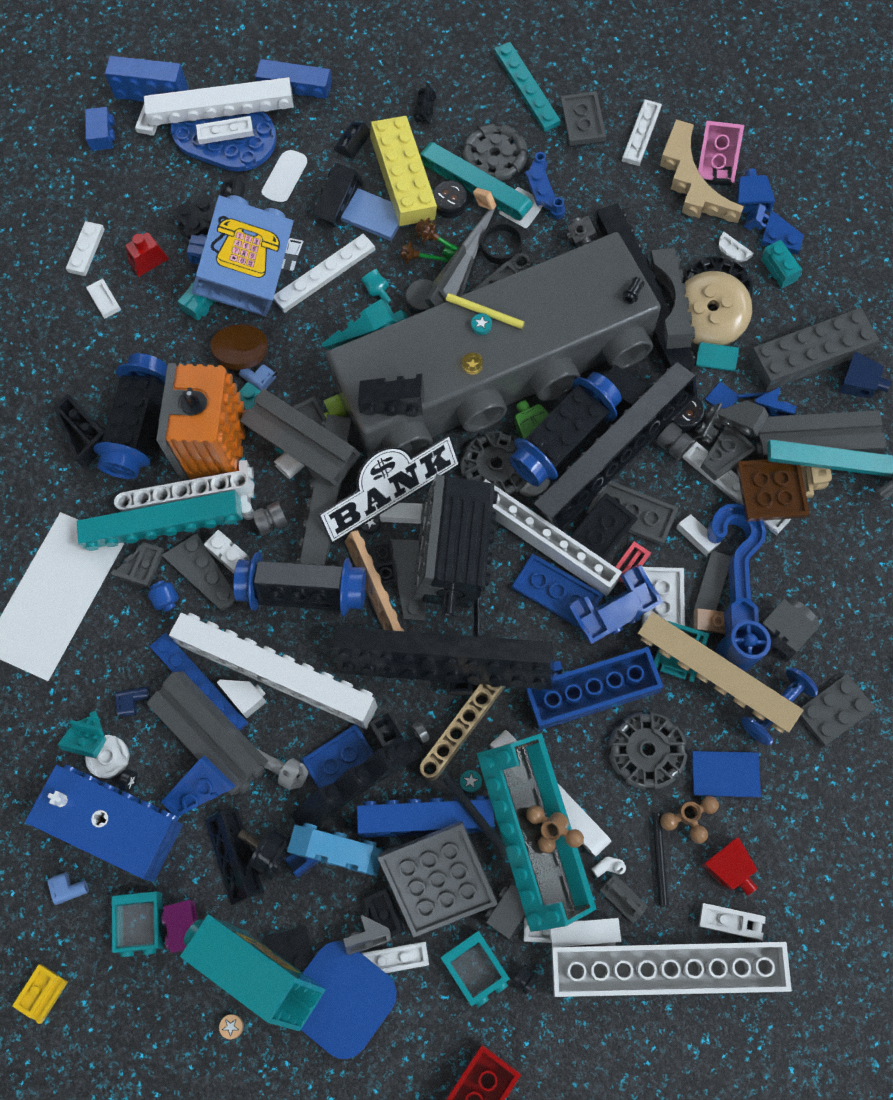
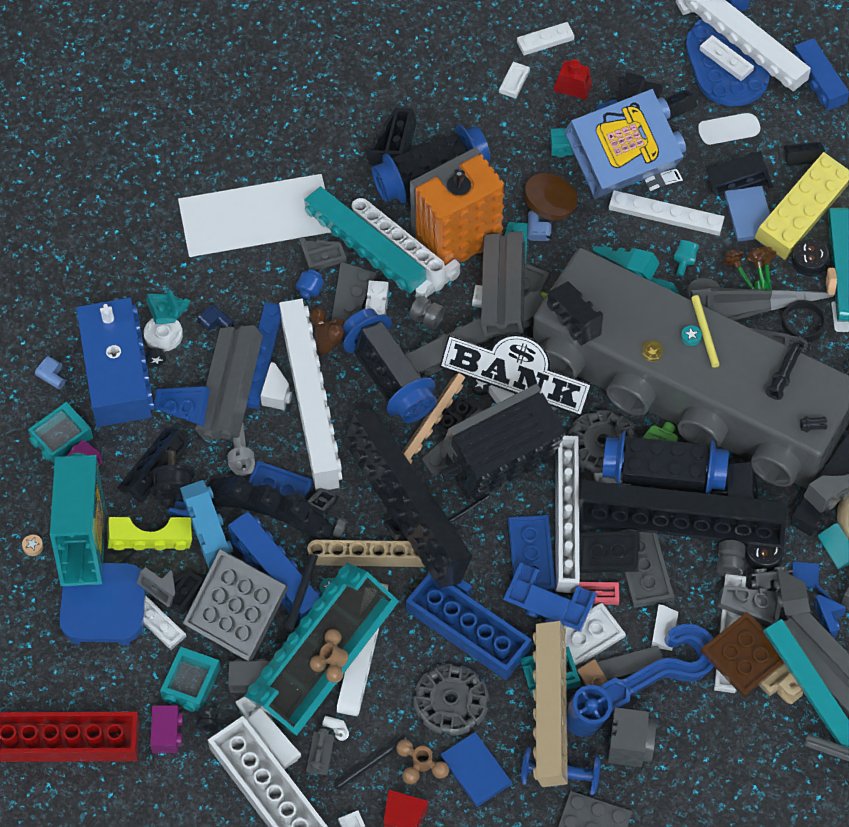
camera: 50 degrees right, 10 degrees down
(226, 612) = (326, 333): none -> reddish brown head
(288, 934) = (124, 534): none -> neon yellow arch
(510, 1026) = (165, 729): none -> magenta brick
(574, 285) = (781, 378): none -> black pin

